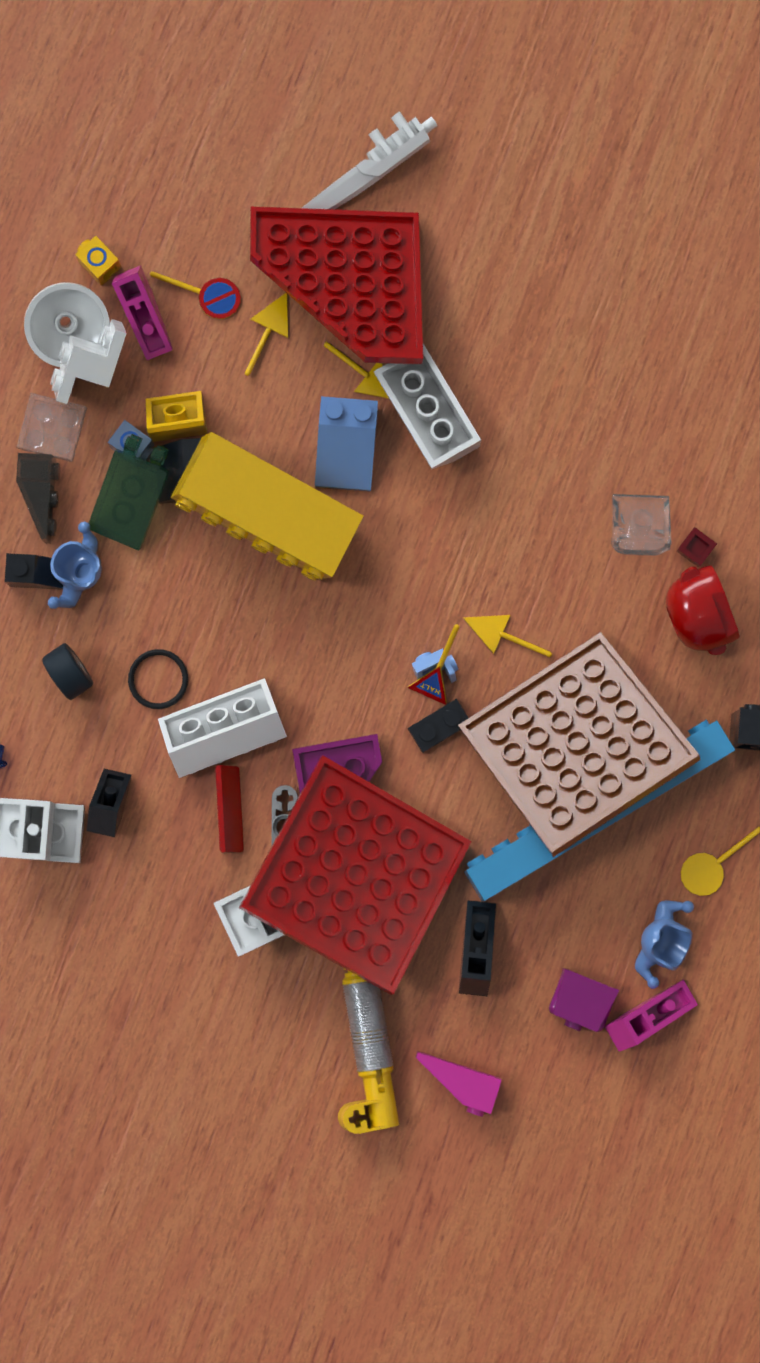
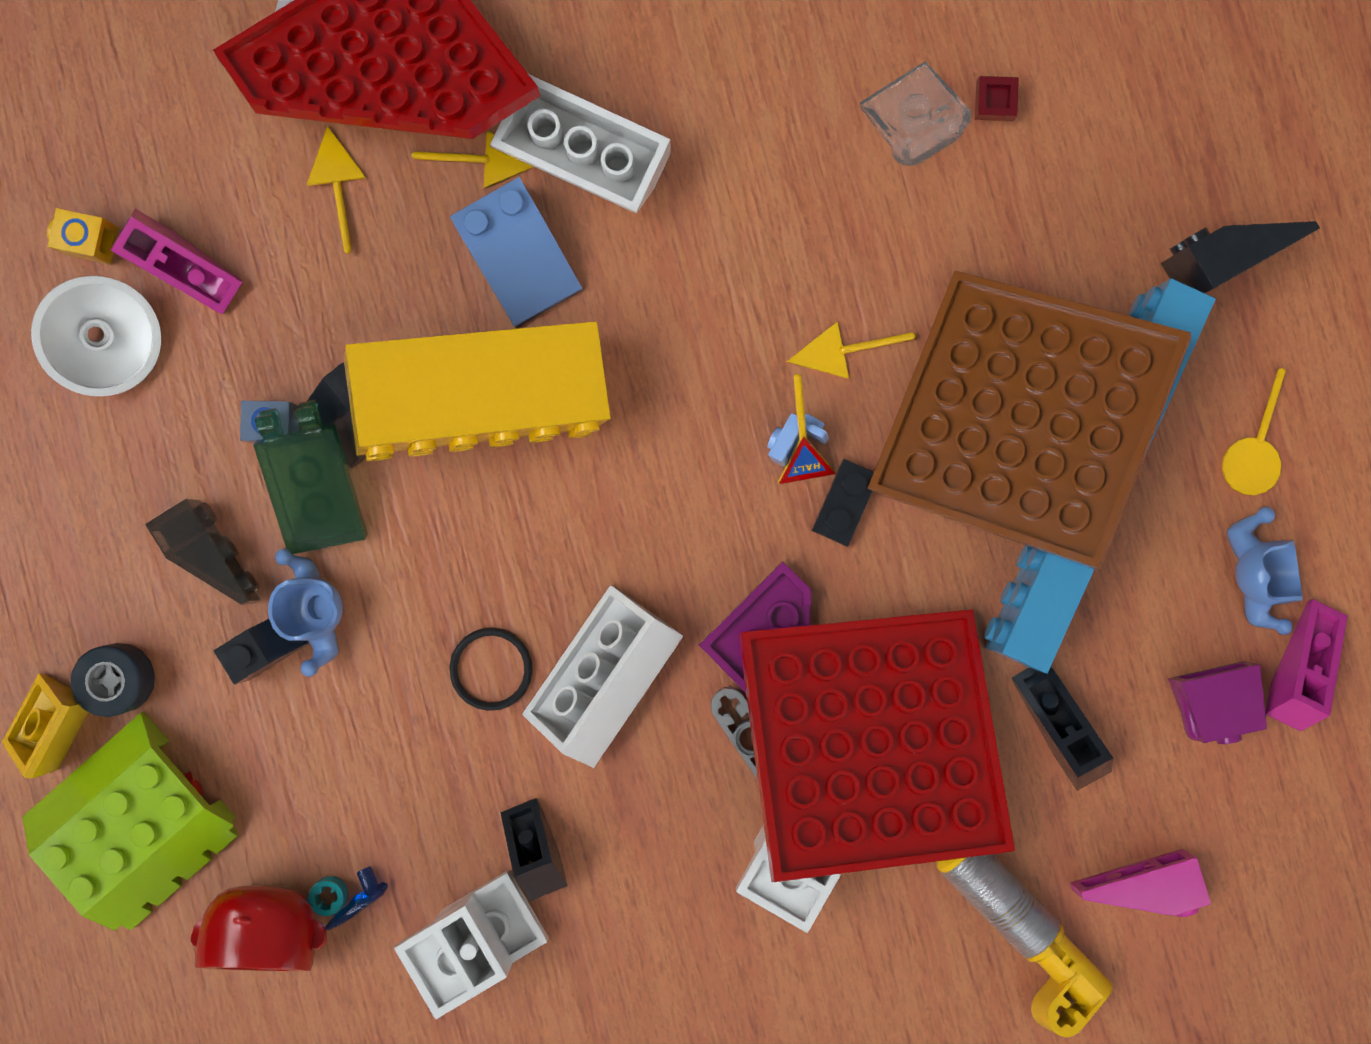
camera: 30 degrees left, 5 degrees up
(51, 427) = (165, 466): clear plate -> none
(67, 671) = (380, 736): black wheel -> none
(88, 360) = (148, 361): white bracket -> none
(175, 416) = (299, 357): yellow slope -> none
(217, 297) = (252, 185): piece -> none
(229, 809) = (674, 762): red slope -> none
(701, 611) = (1059, 163): red piece -> none

